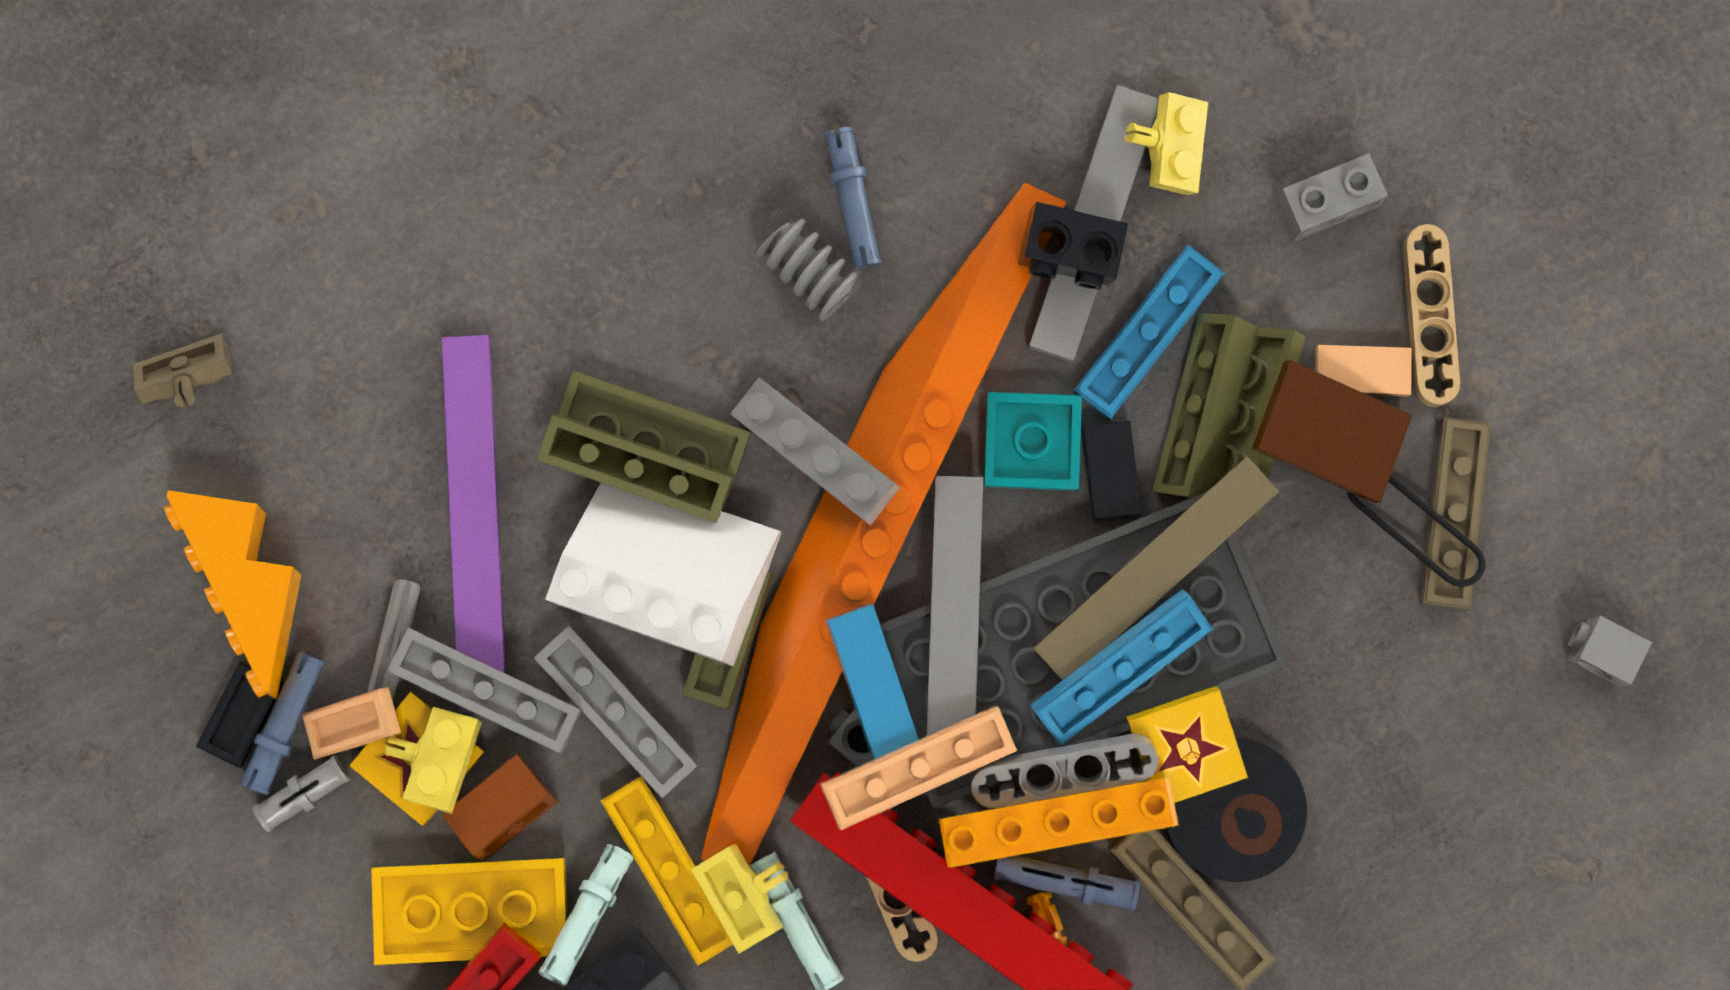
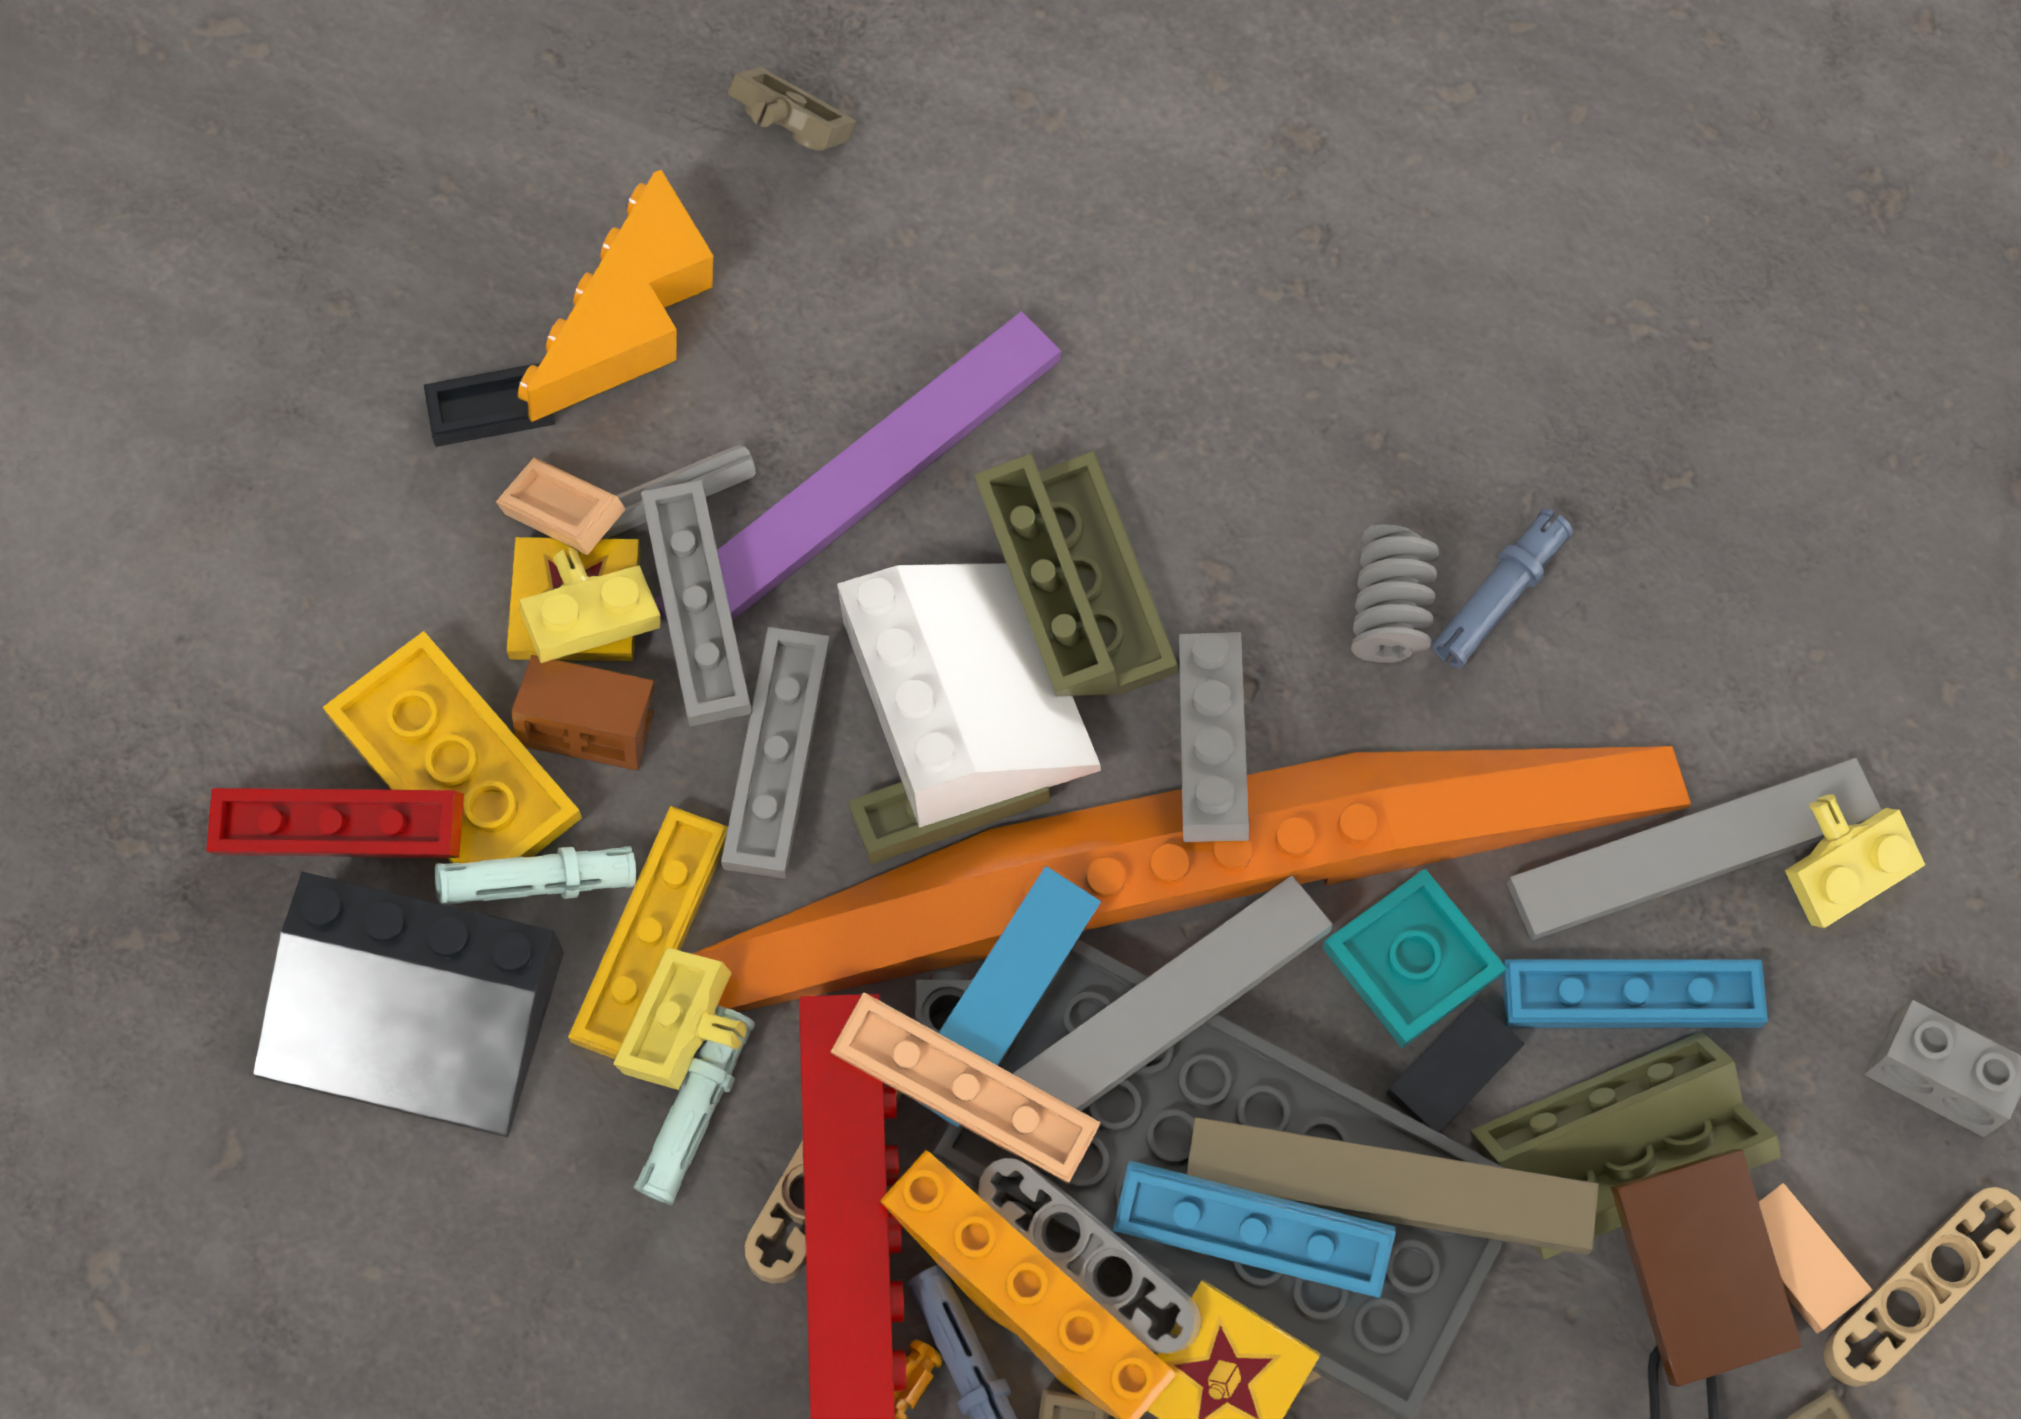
camera: 50 degrees right, 15 degrees down
(274, 811) = (451, 513): light grey pin -> none
(282, 723) = (509, 445): sand blue pin -> none
(1073, 232) = (1670, 824): black brick -> none

